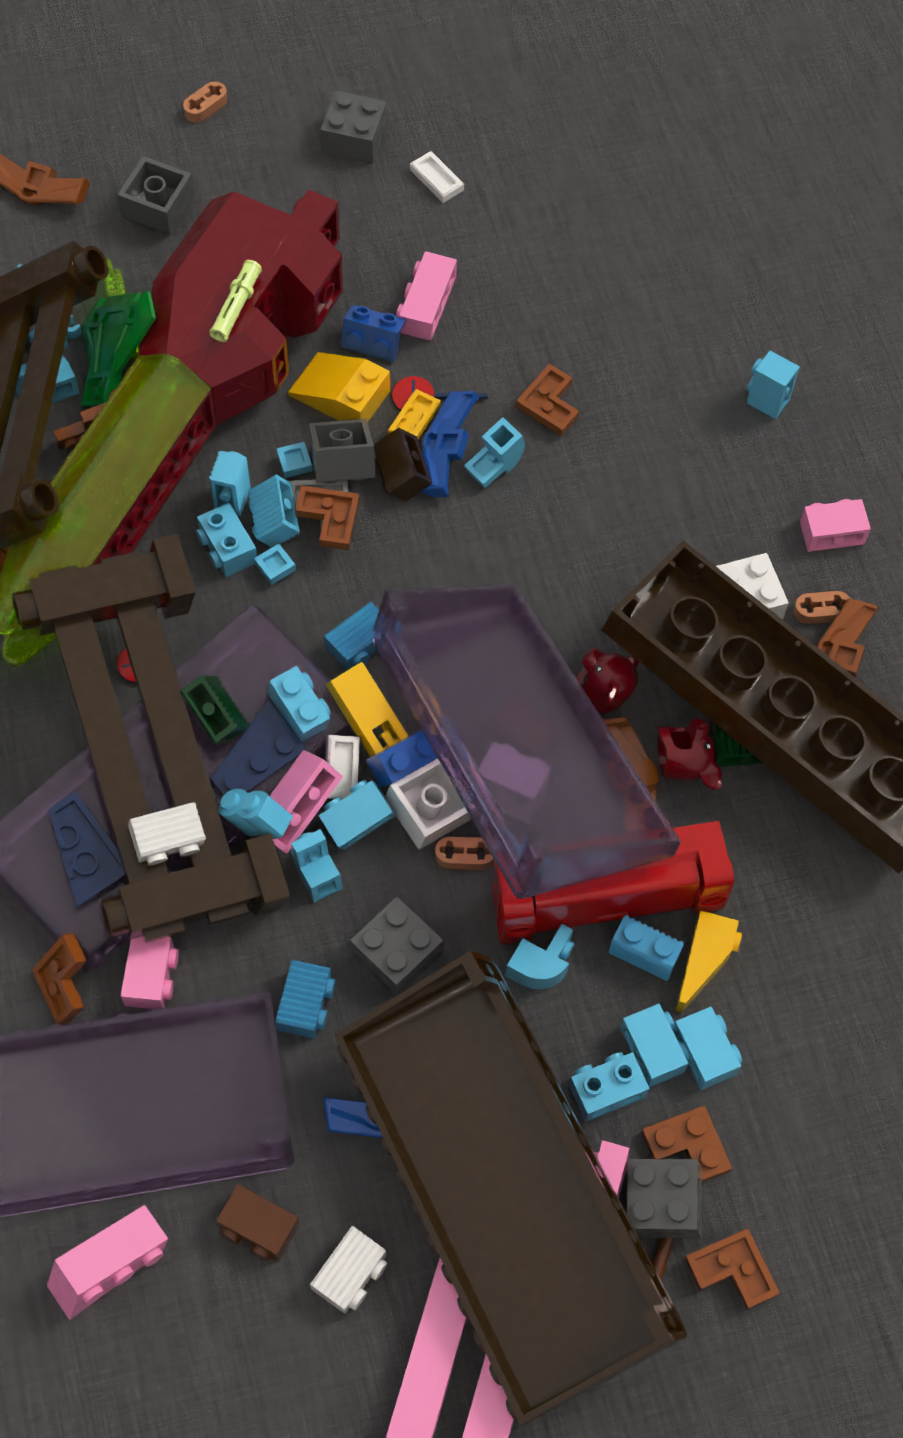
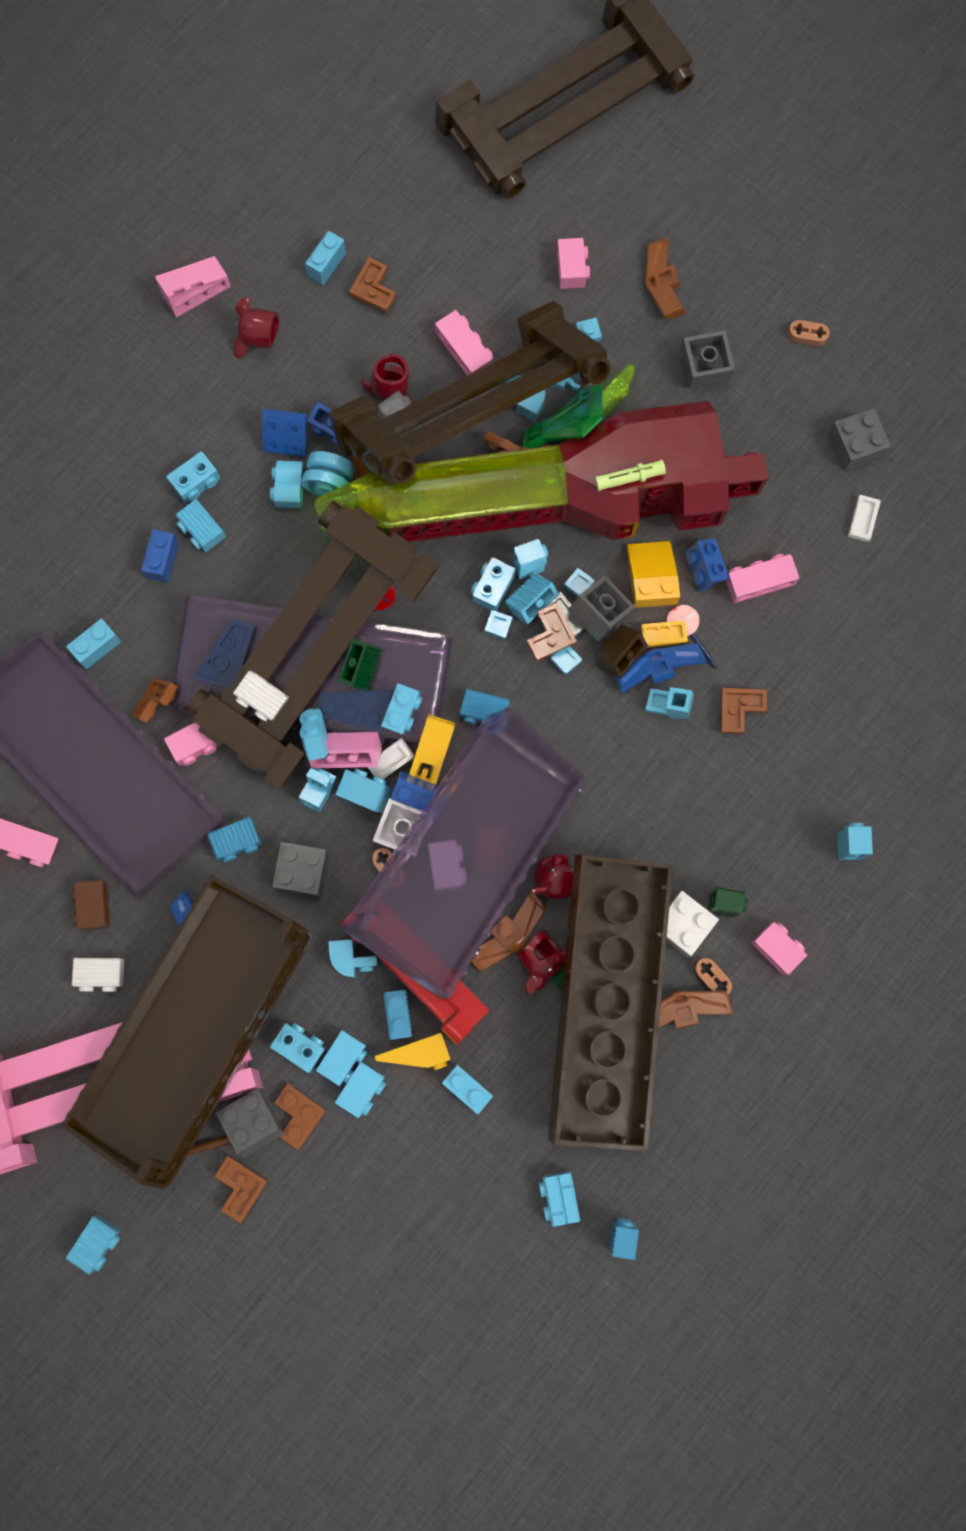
camera: 55 degrees right, 15 degrees up
(368, 525) = (566, 660): none -> medium azure plate
(753, 533) = (727, 902): none -> dark green brick
(783, 928) = (467, 1089): none -> medium azure brick

